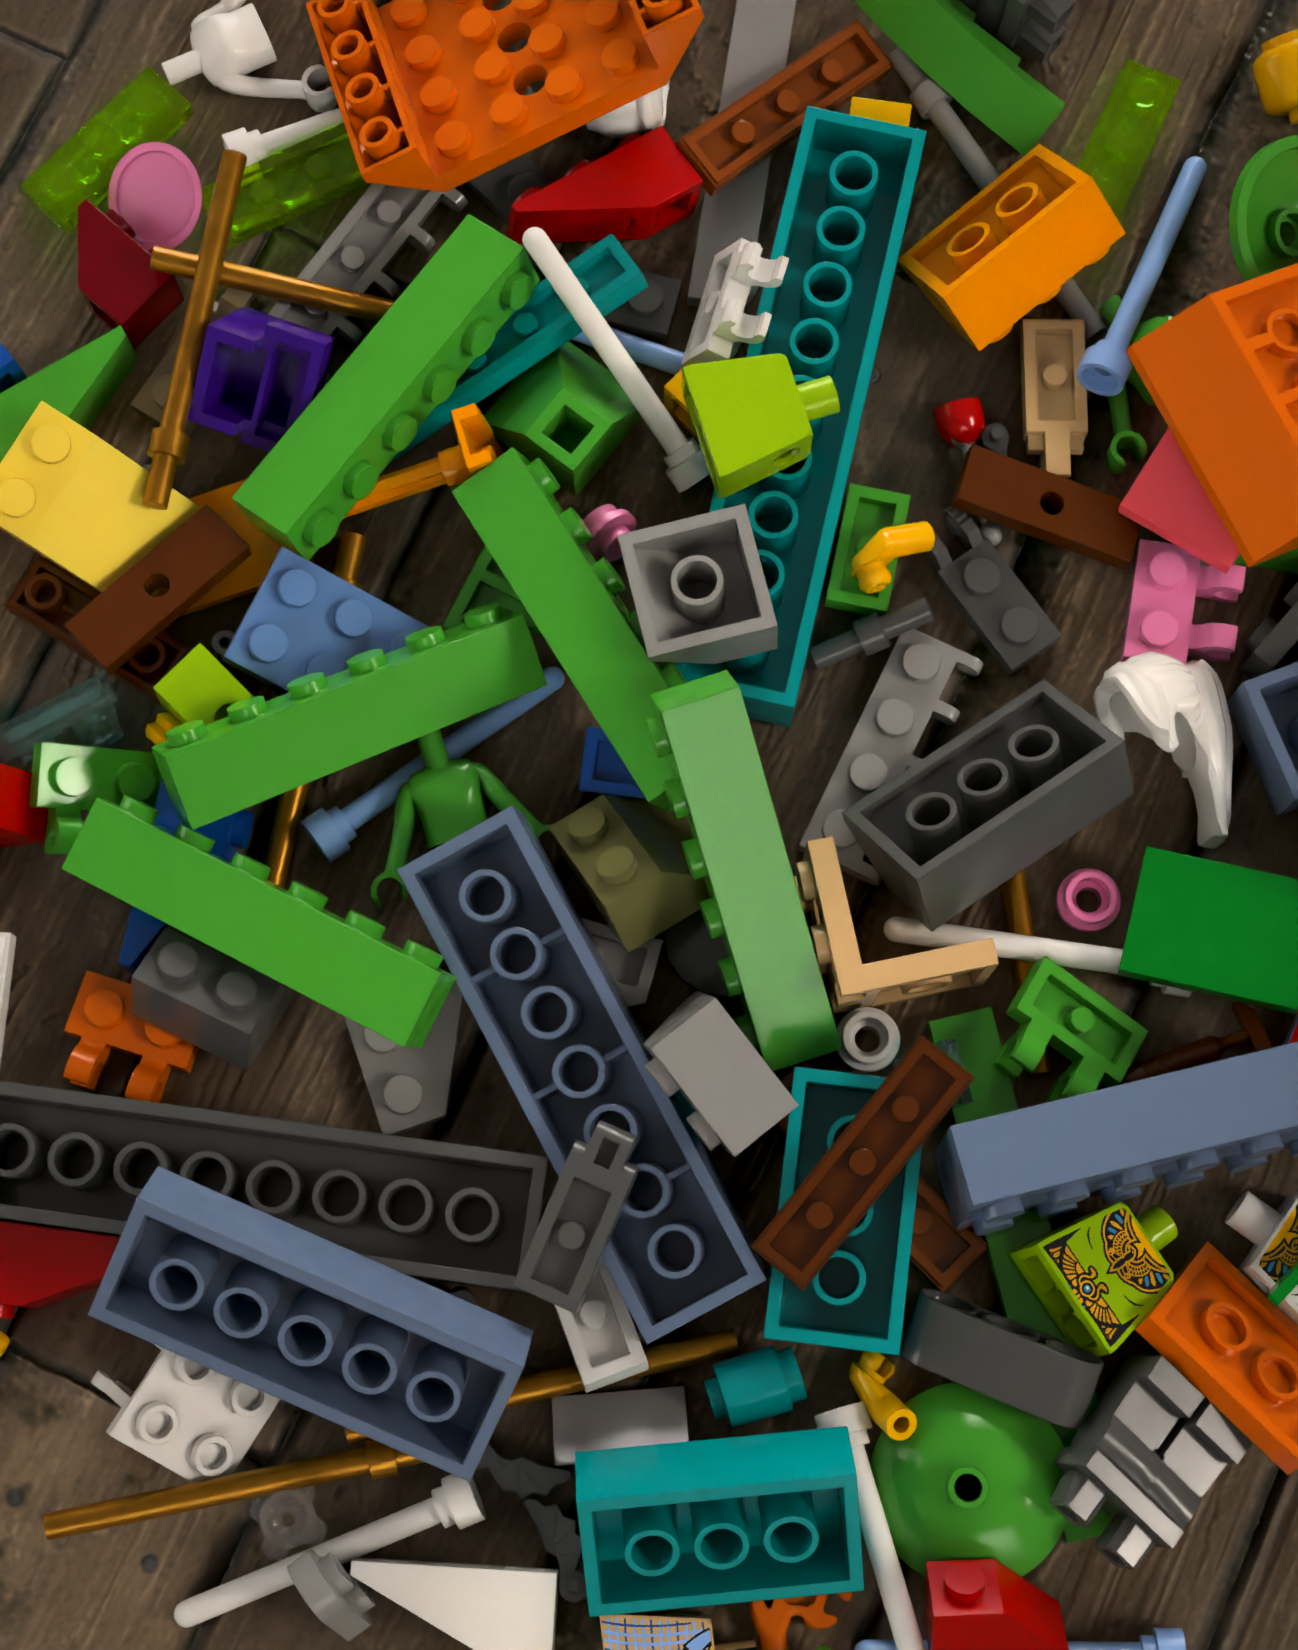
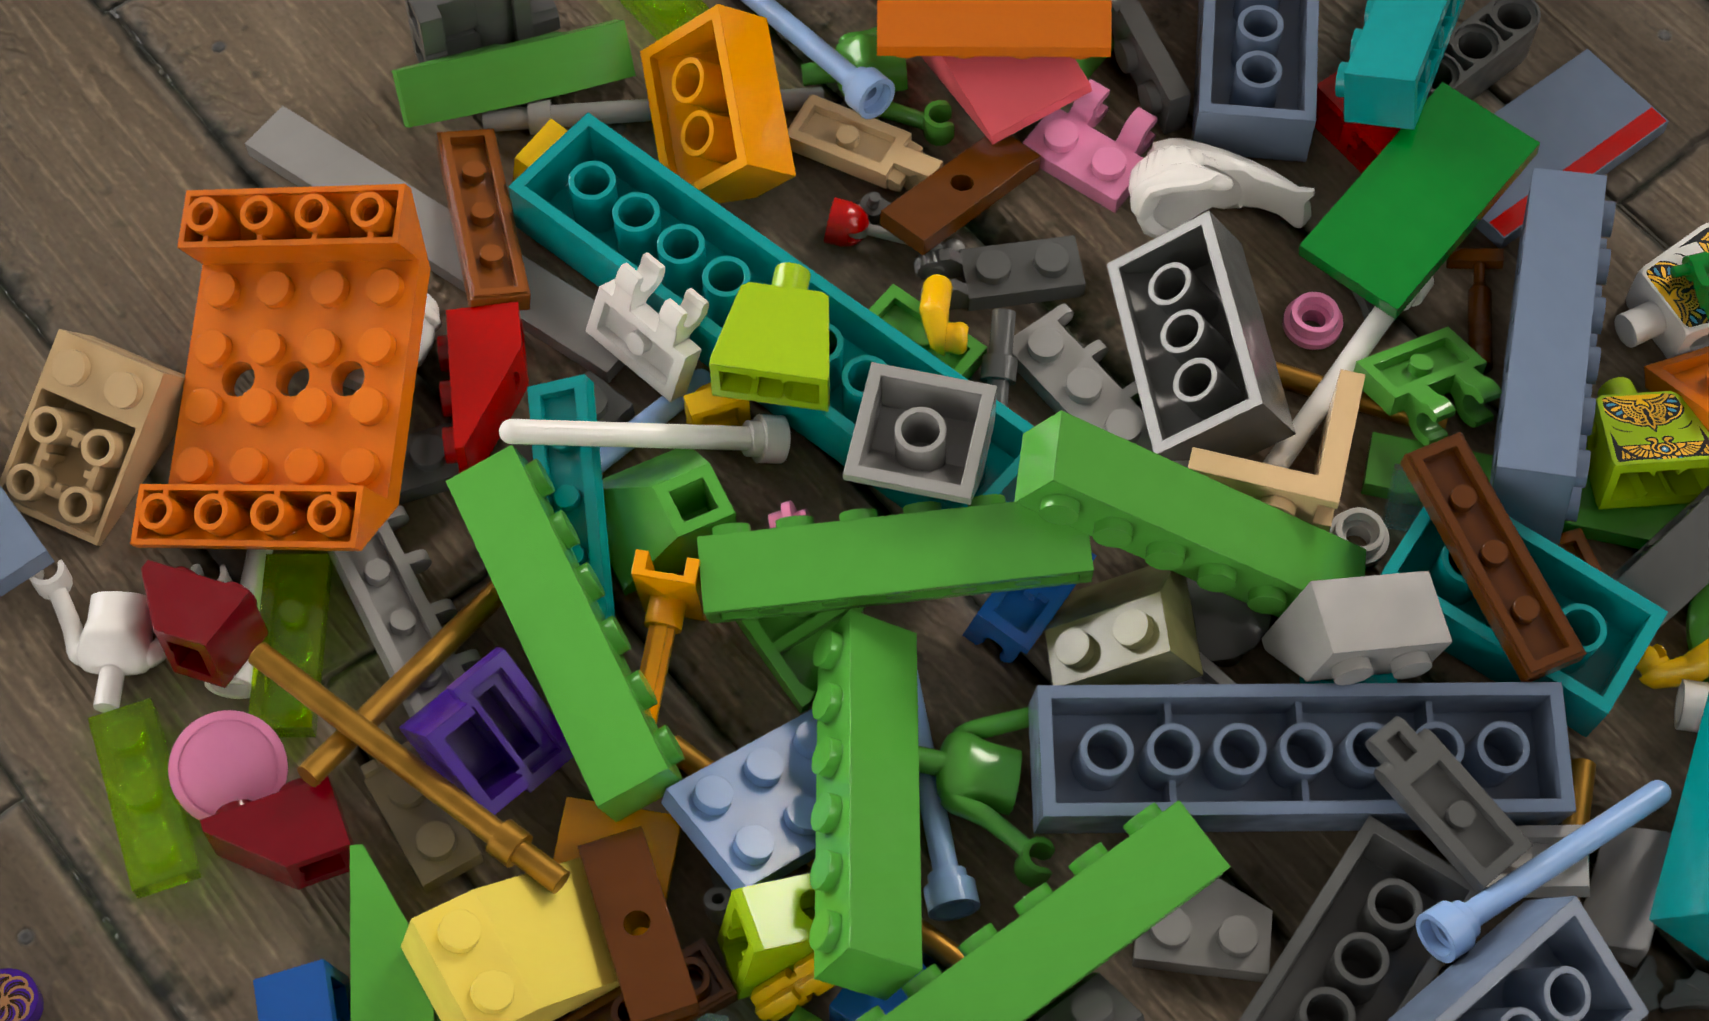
camera: 65 degrees left, 15 degrees down
(253, 96) = (202, 622): none -> dark red slope
(466, 1273) = (1452, 927): none -> light blue piece
(755, 1386) = (1633, 752): teal brick -> none

